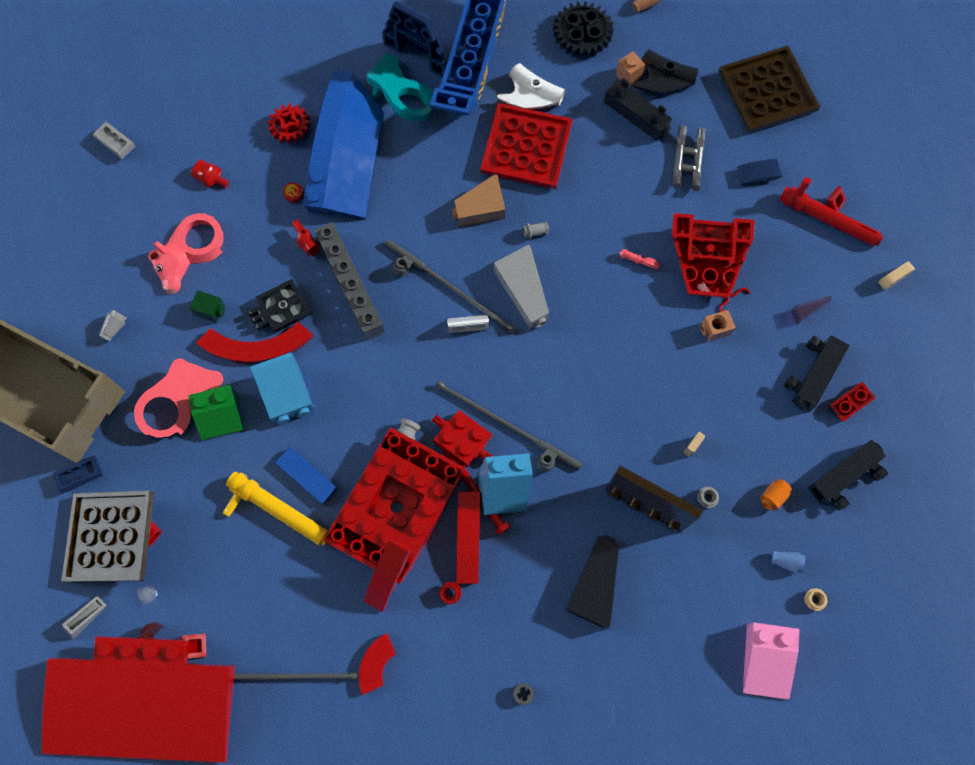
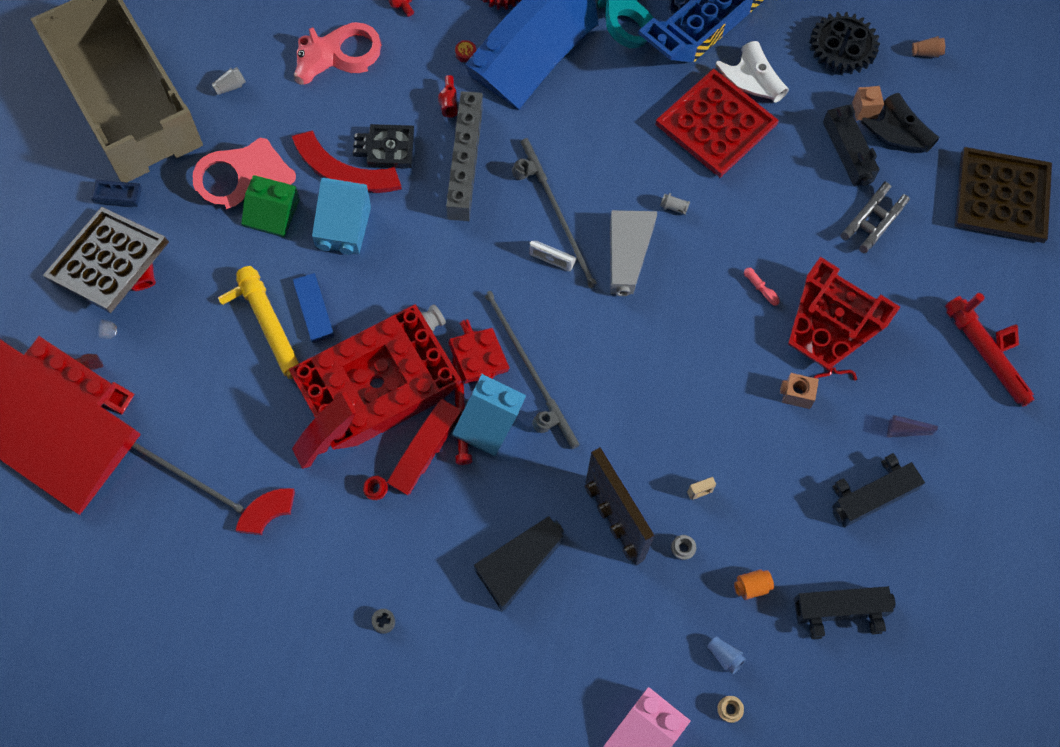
camera: 30 degrees right, 5 degrees down
(84, 617) = (41, 318): light grey piece -> none
(207, 306) = (322, 110): dark green brick -> none
(480, 204) = (635, 151): medium nougat slope -> none
(759, 171) = (942, 267): dark blue slope -> none
(852, 401) = (895, 542): red slope -> none
(896, 275) = (1024, 446): tan beam -> none

